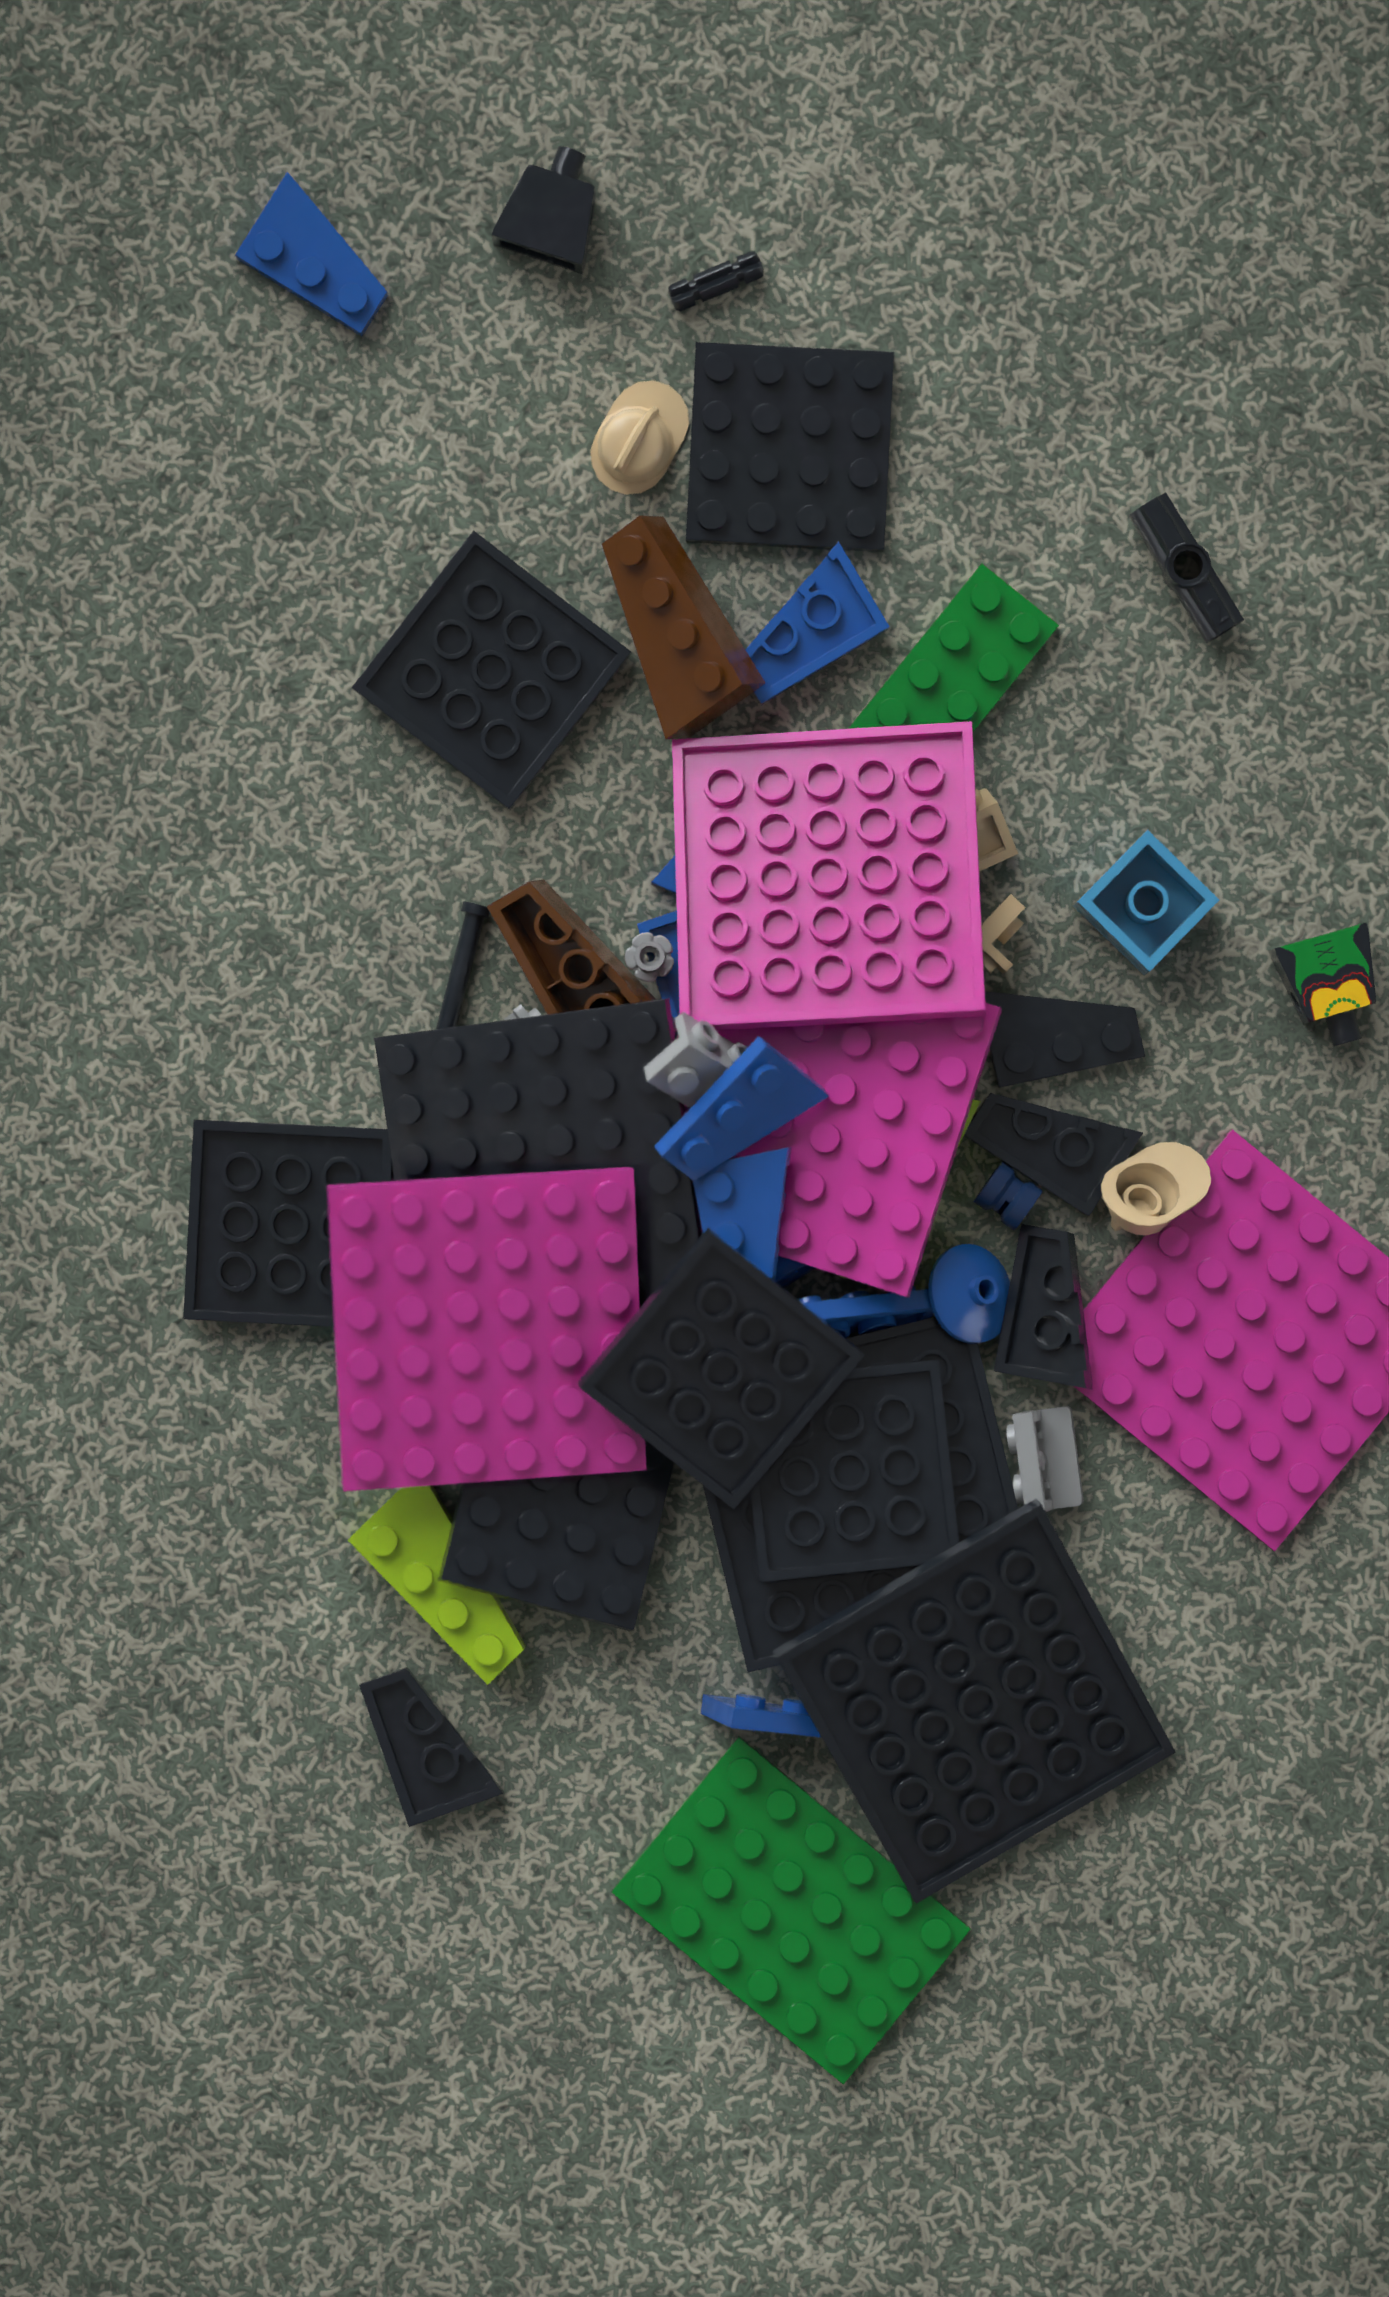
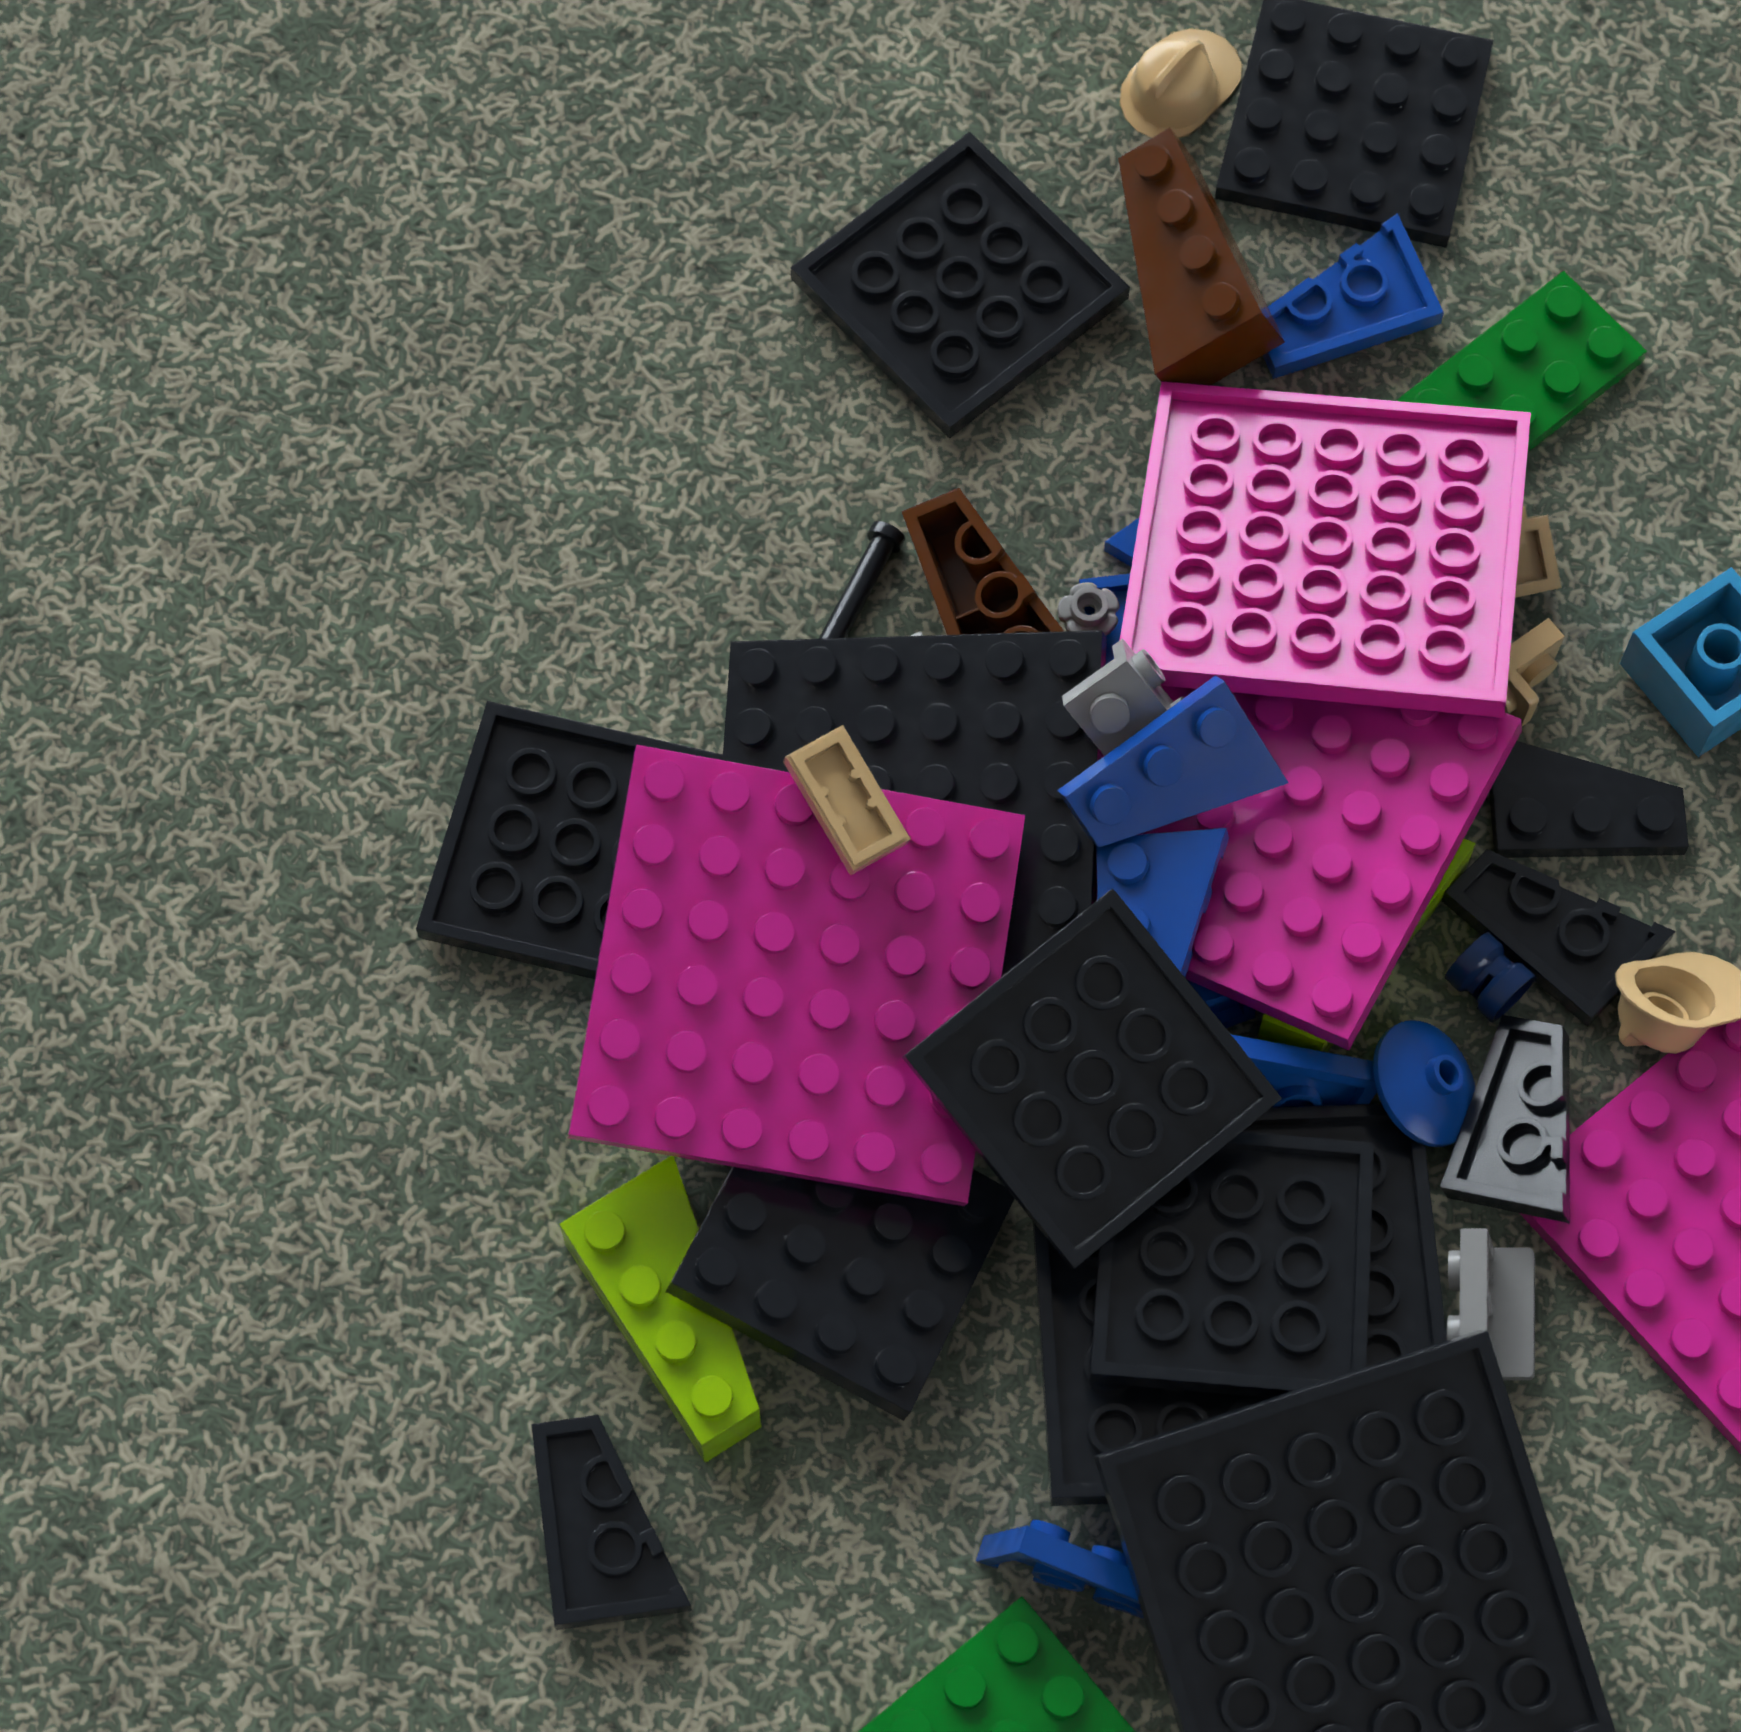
camera: 10 degrees right, 20 degrees down
(497, 1202) = (846, 800): none -> tan plate

